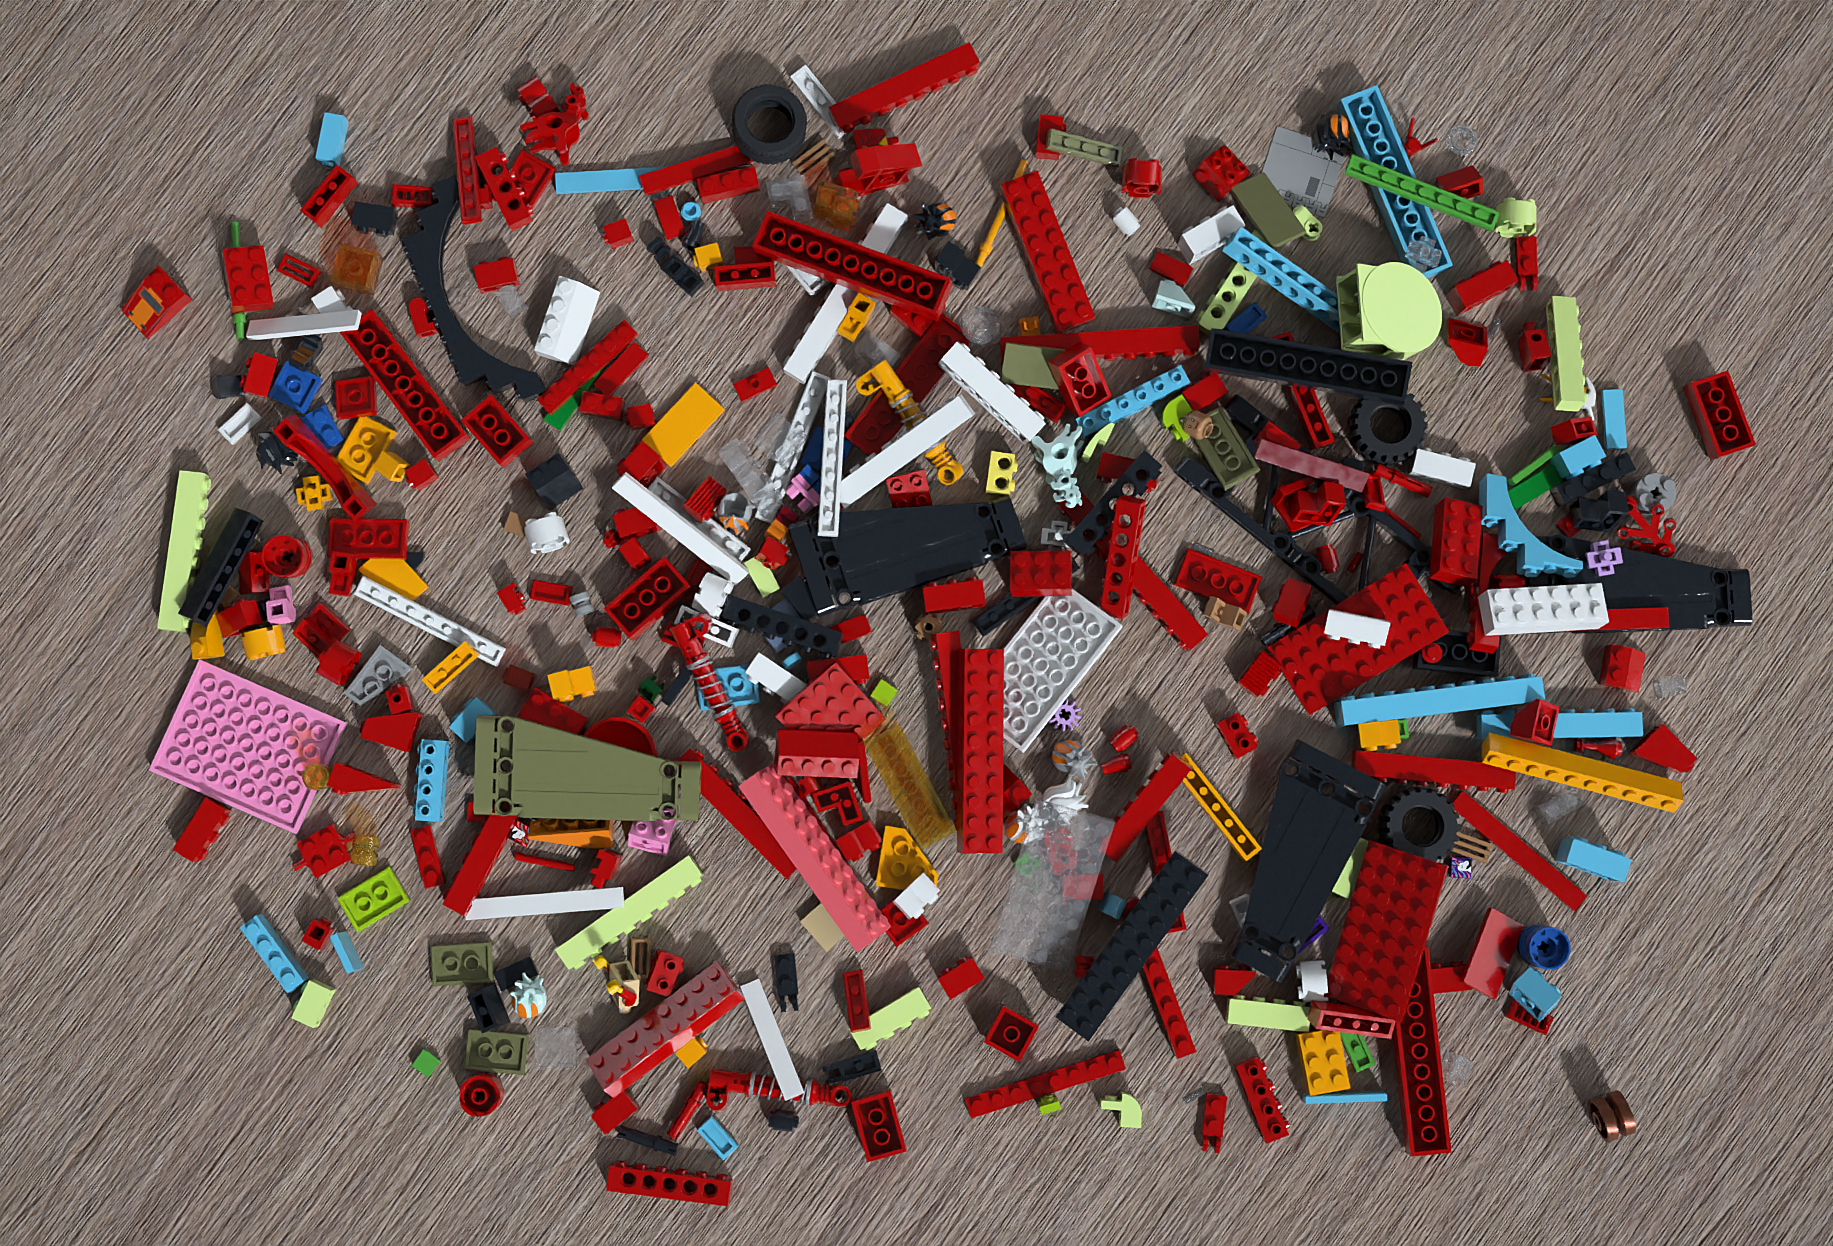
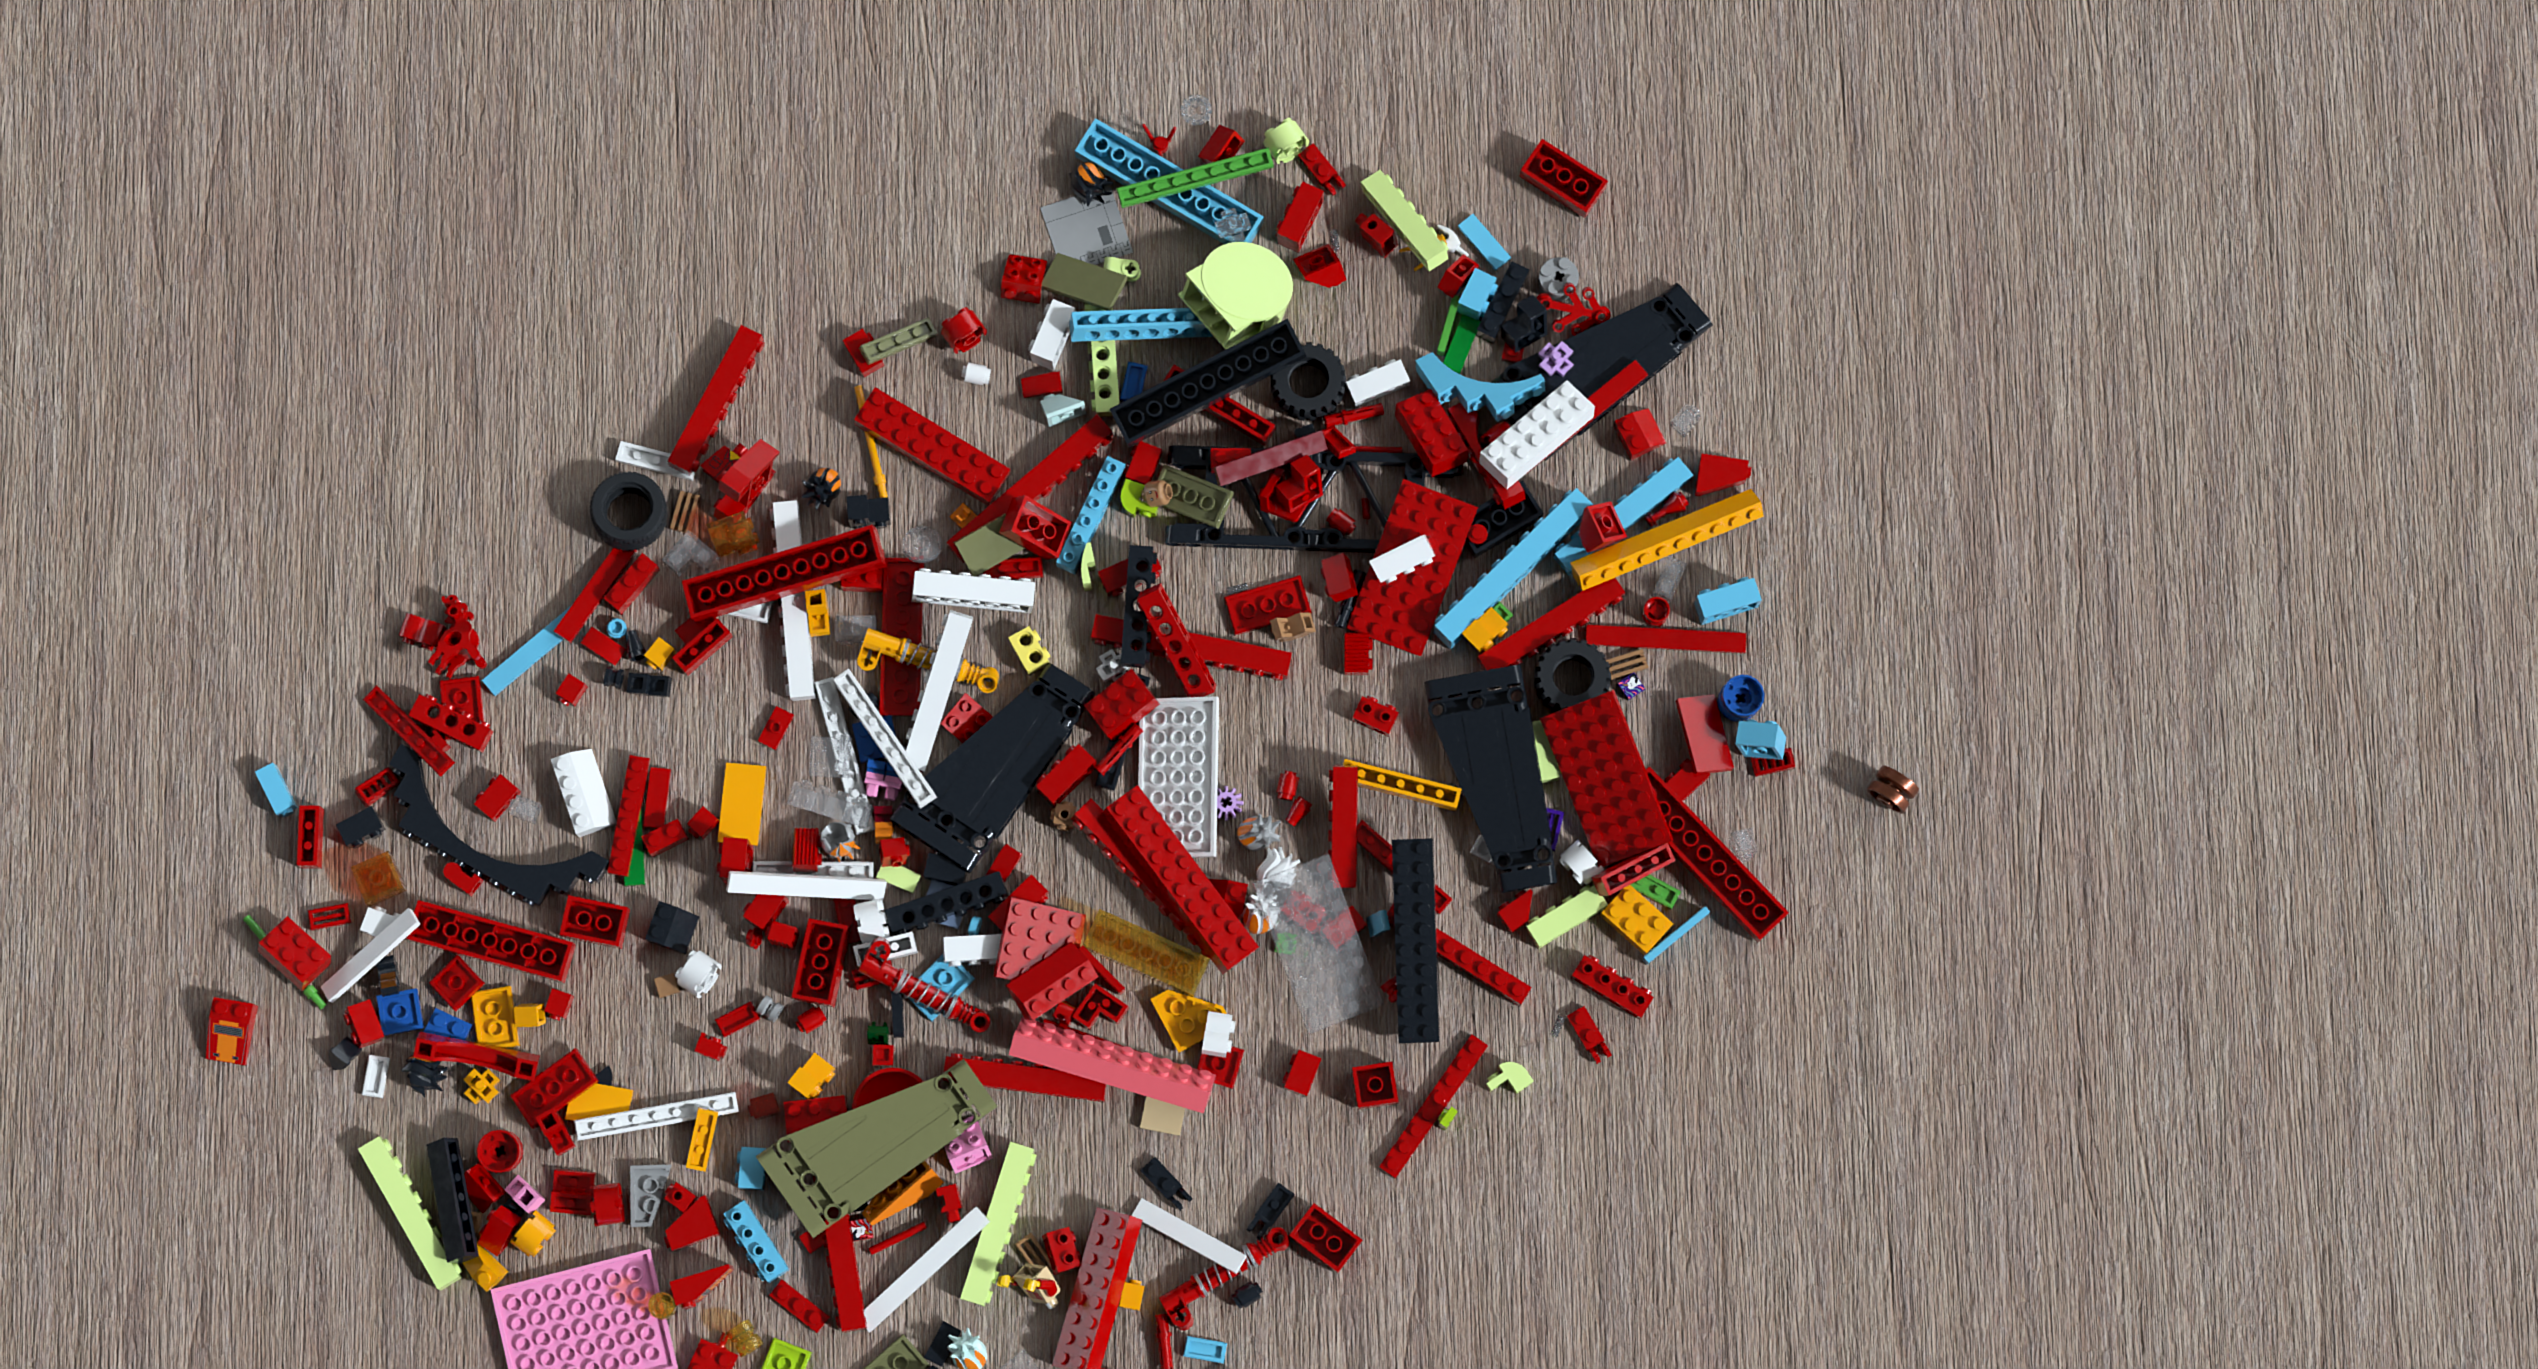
camera: 35 degrees left, 5 degrees down
(856, 1001) = (1233, 1154): red tile -> none
(859, 841) = (1138, 1027): red brick -> none
(884, 693) = (1068, 895): lime tile -> none
(892, 1016) = (1270, 1148): yellowish green brick -> none
(1012, 607) = (1118, 749): none -> red pin
(1060, 462) = (1070, 605): light aqua animal -> none
(1527, 823) = (1655, 611): none -> red wheel

